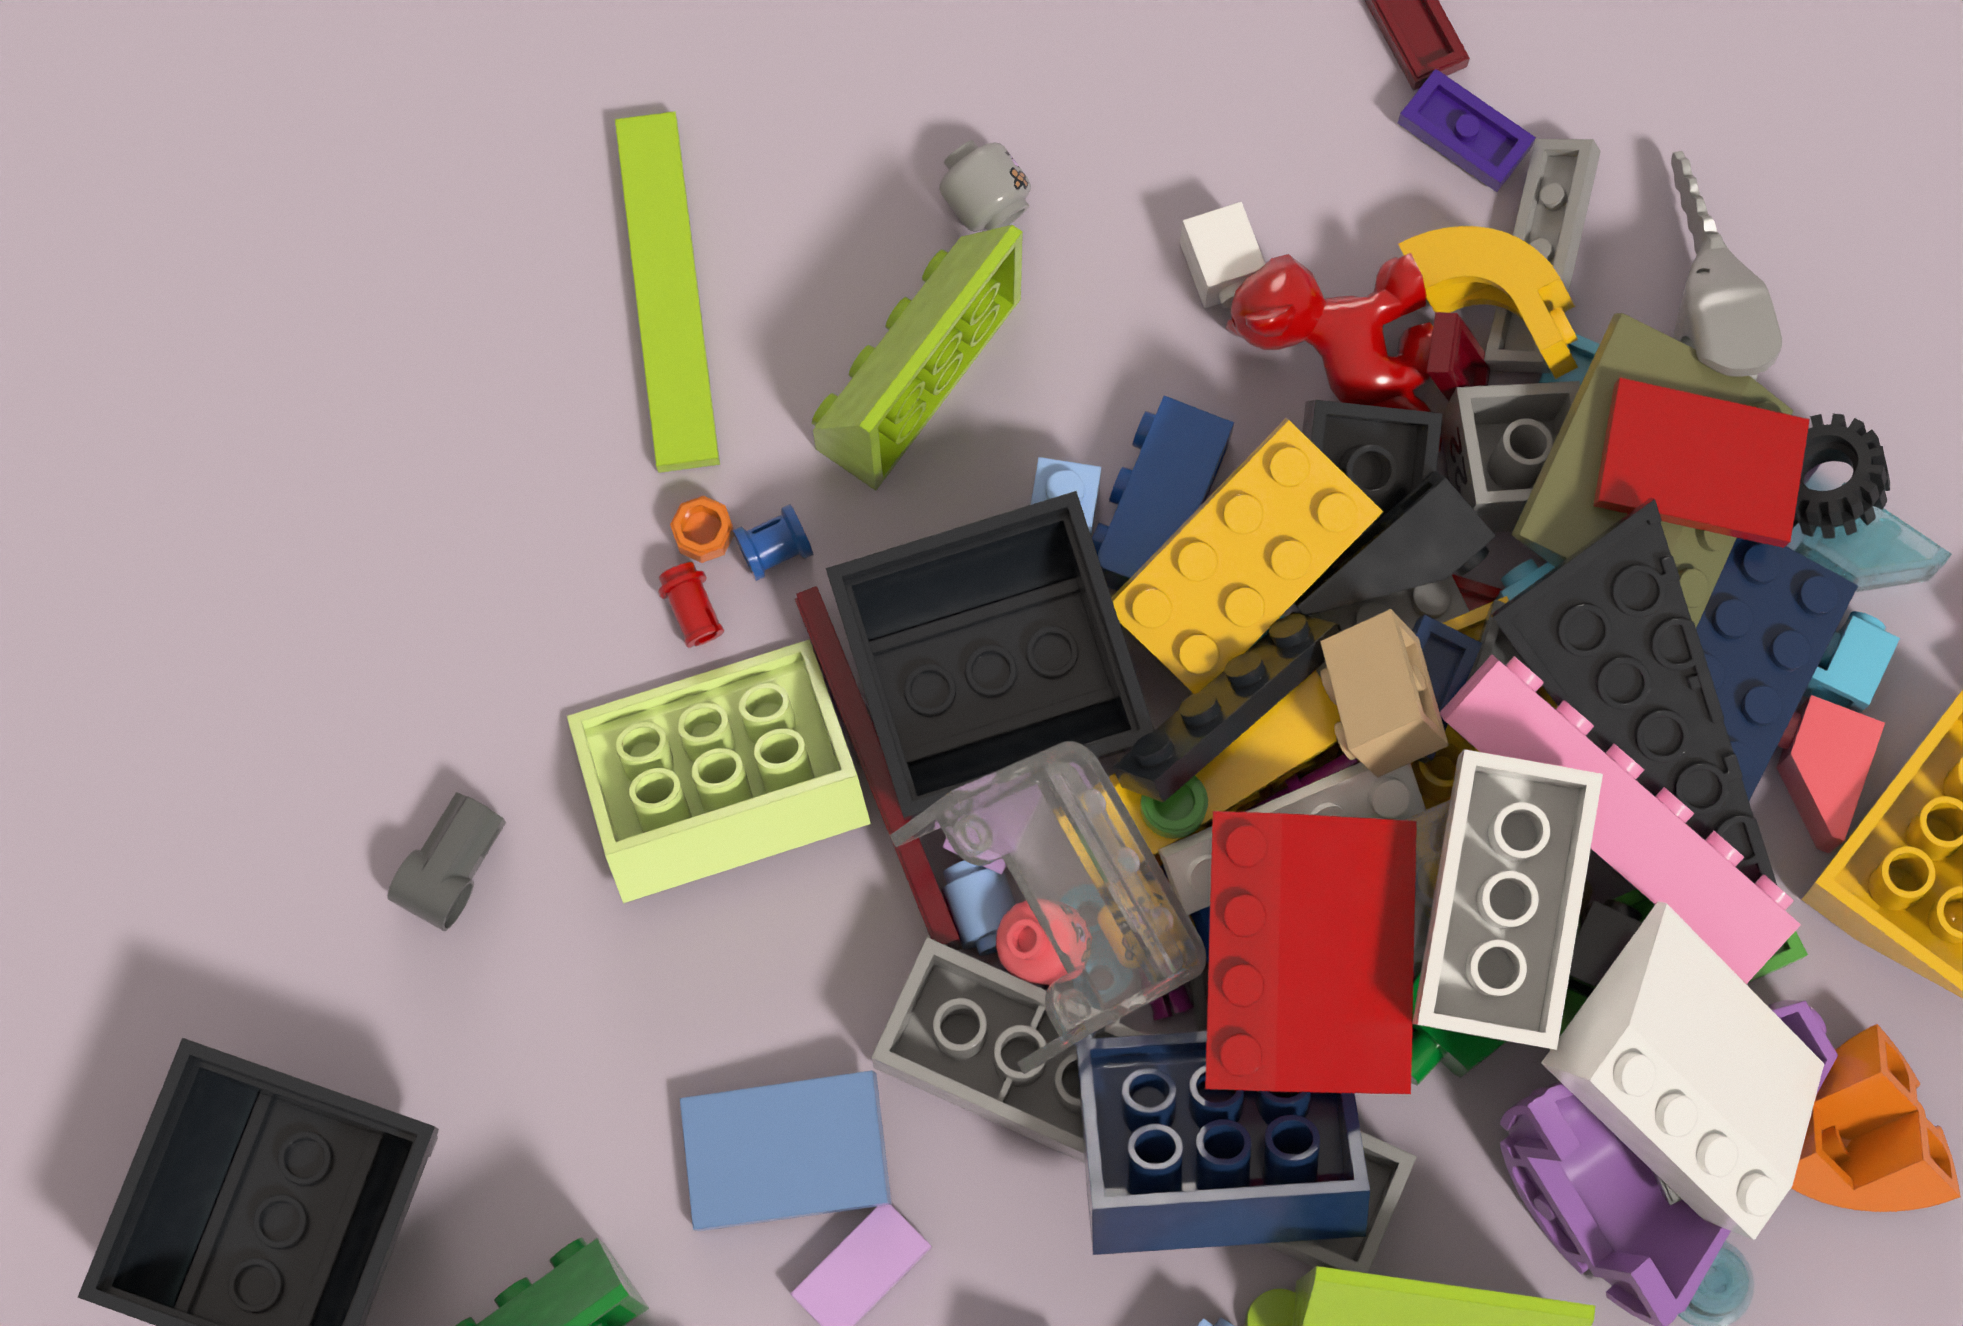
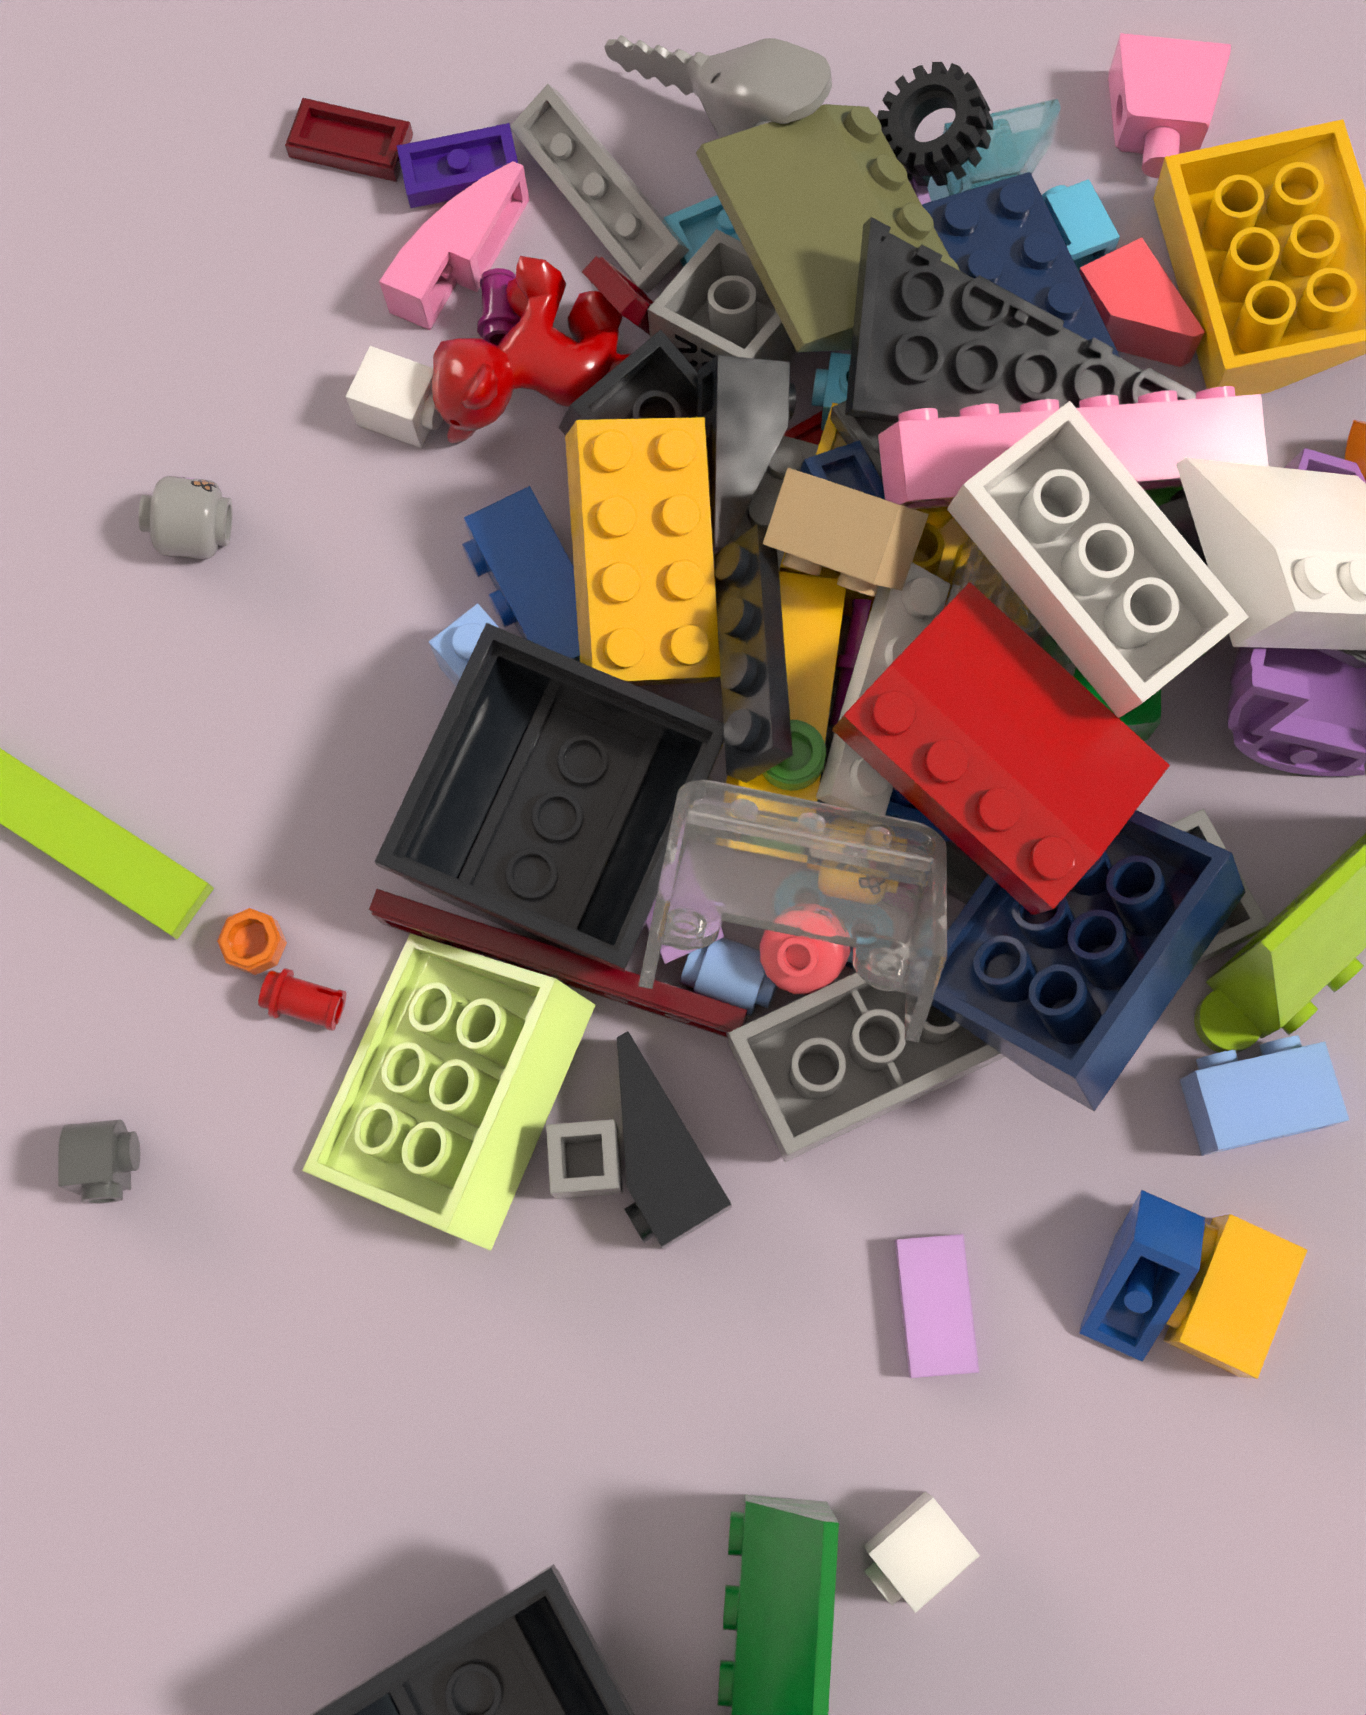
camera: 45 degrees left, 0 degrees up
(439, 876) = (340, 1383): dark grey piece -> none
(450, 563) = (97, 1160): none -> dark grey plate
(746, 913) = (584, 1159): none -> light grey brick
(773, 542) = (311, 896): blue bush -> none
(785, 1151) = (795, 1288): medium blue tile -> none
(794, 973) = (663, 1164): none -> black slope
(921, 355) = (269, 661): lime slope -> none
(1359, 276) = (496, 314): none -> magenta pin
(1392, 189) = (455, 246): none -> bright pink slope
(1498, 269) = (595, 211): yellow arch -> none
(1702, 461) = (870, 164): red tile -> none

